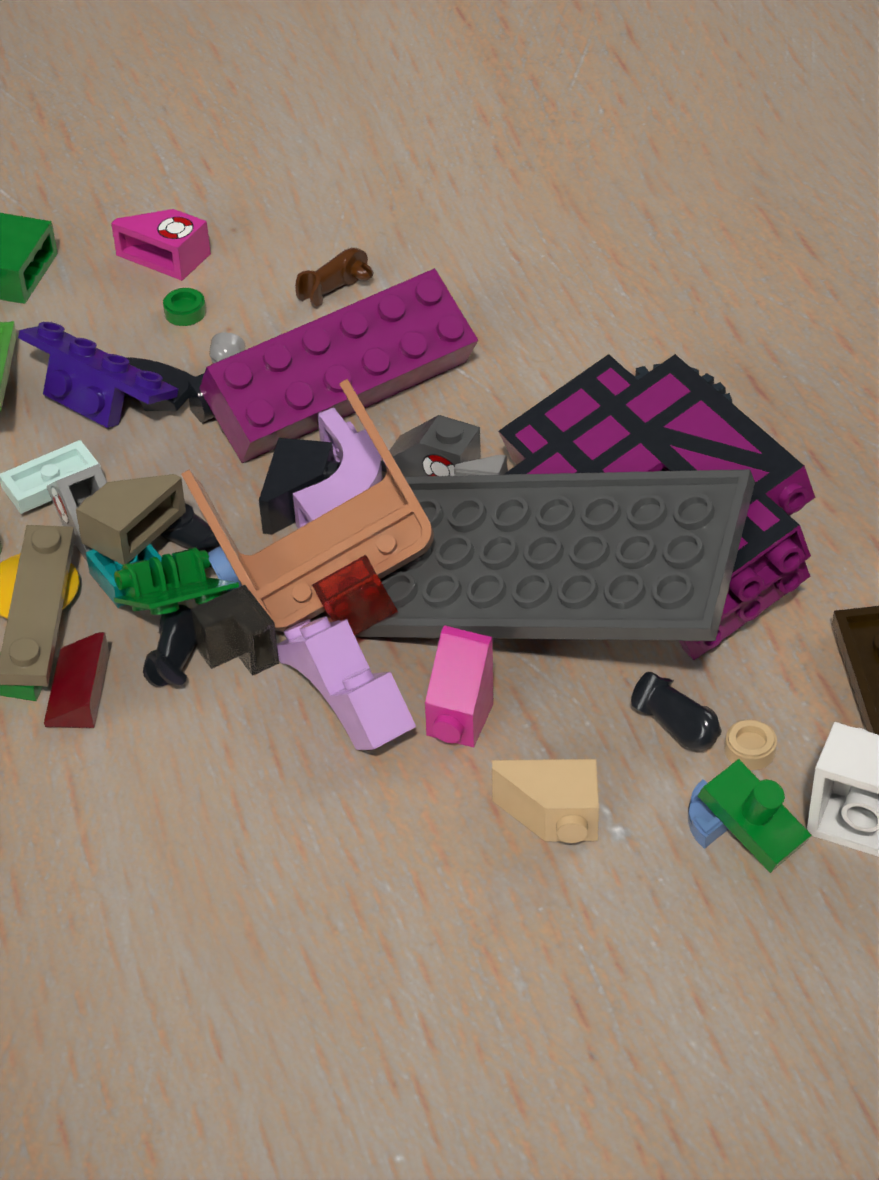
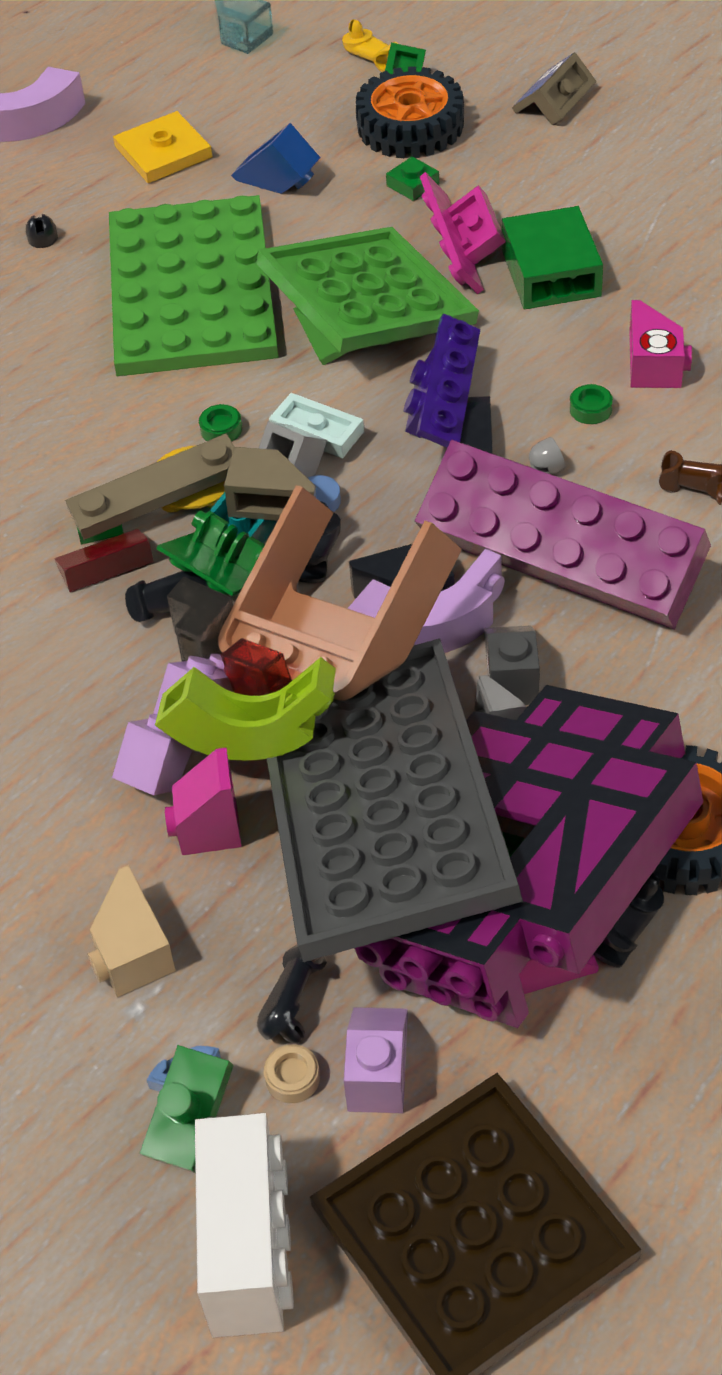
camera: 65 degrees right, 5 degrees up
(418, 606) = (250, 727): none -> lime arch
(775, 678) = (376, 1060): none -> lavender slope

